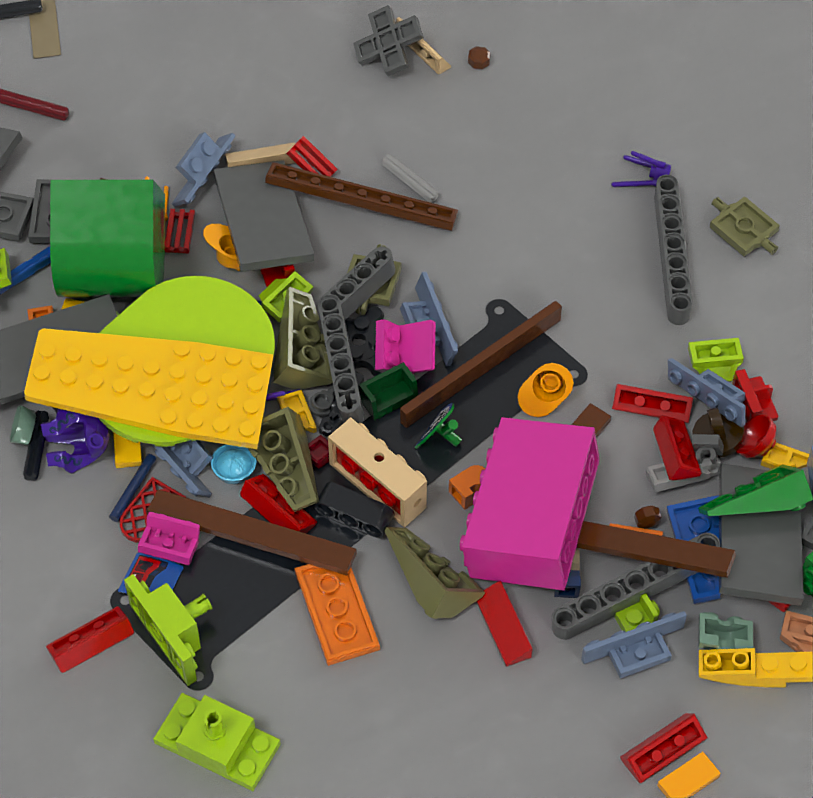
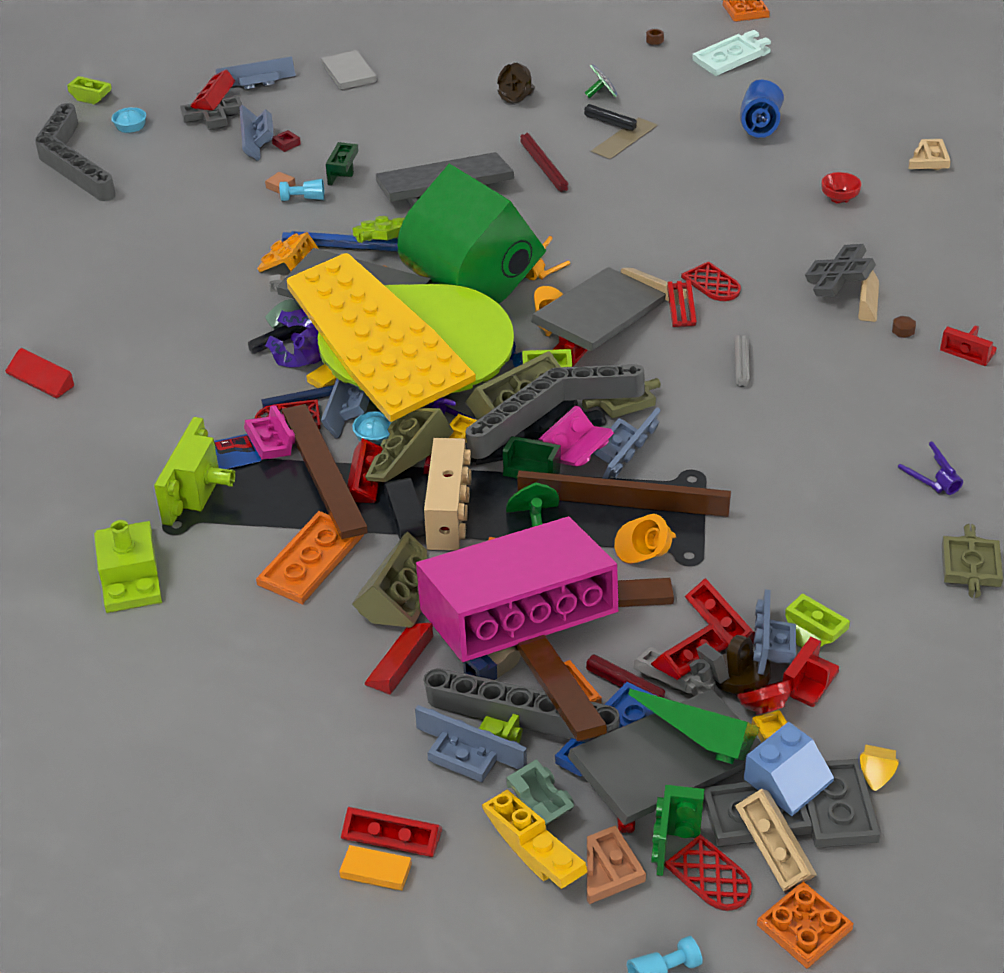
camera: 50 degrees right, 15 degrees down
(90, 639) = (141, 452): red slope -> none
(170, 228) = (526, 291): red tile -> none
(198, 162) = (602, 254): sand blue bracket -> none
(303, 108) = (725, 277): none -> red window
(361, 196) = (688, 346): reddish brown tile -> none
(541, 42) = (967, 345): none -> red panel
(628, 510) = (620, 676): none -> dark red axle
(647, 517) = (602, 677): reddish brown tile -> none
(673, 250) = (882, 533): dark grey beam -> none

